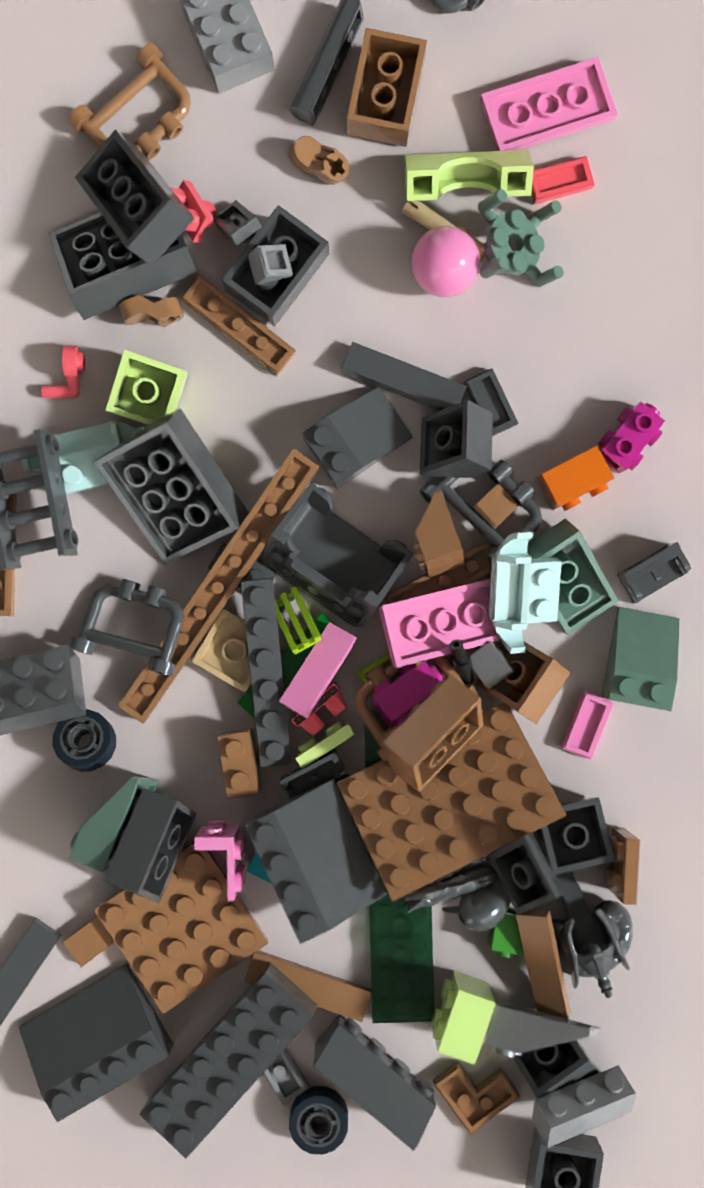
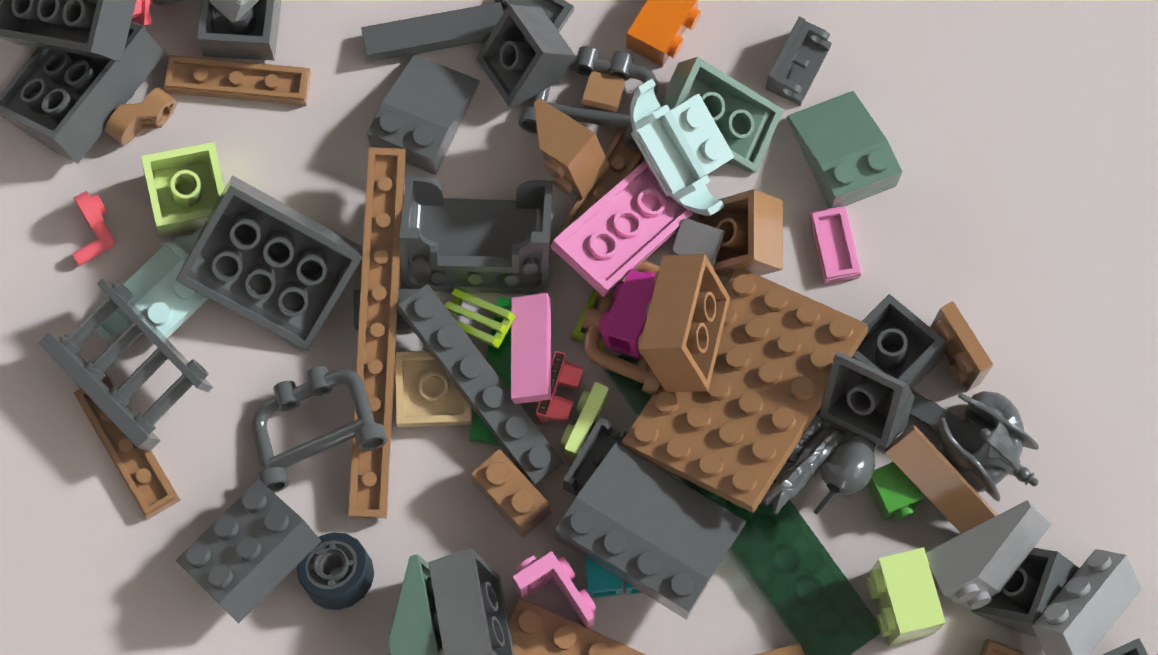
camera: 30 degrees left, 15 degrees down
(461, 661) = (660, 244): pearl dark grey bar -> none

